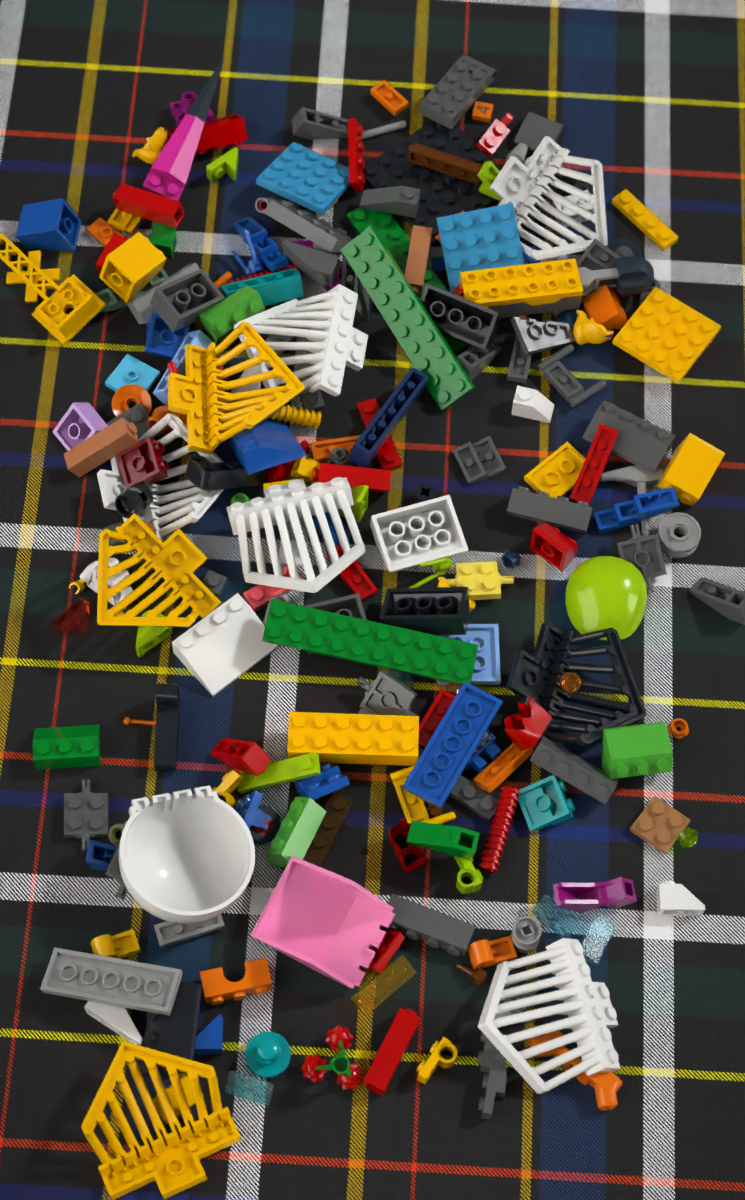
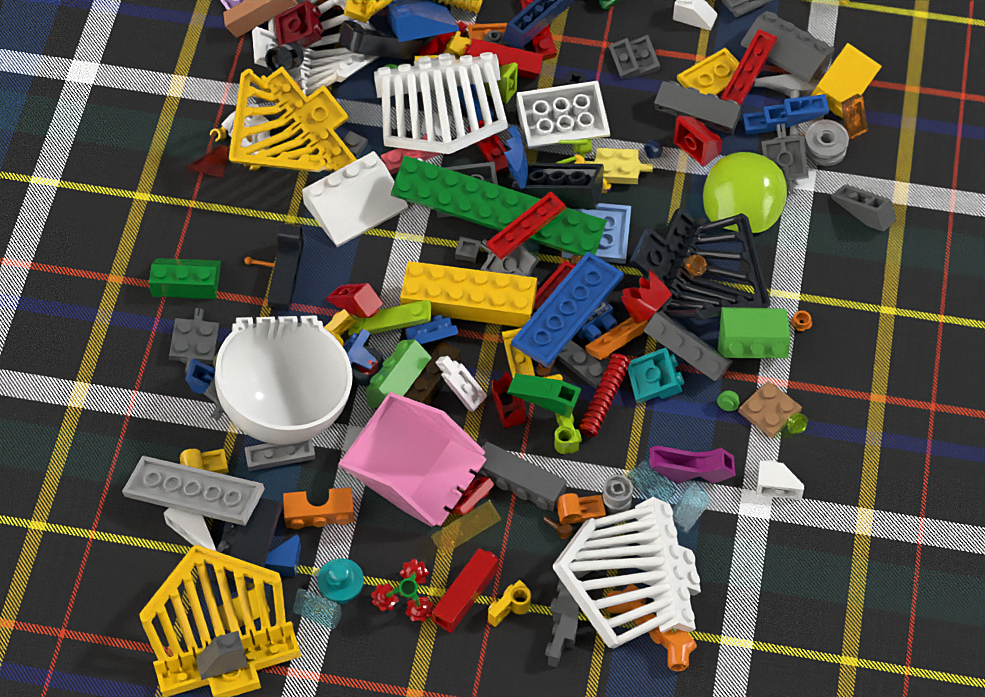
camera: 10 degrees right, 5 degrees down
(149, 636) = (283, 183): lime slope -> none
(164, 1153) = (222, 656): none -> dark grey slope
(344, 687) = (468, 249): none -> dark grey plate
(358, 833) = (461, 383): none -> white hinge
(380, 586) = (516, 157): none -> blue slope
(401, 662) = (526, 225): none -> red plate
(619, 821) = (728, 401): none -> bright green plate
(703, 505) = (854, 116): none -> clear orange plate

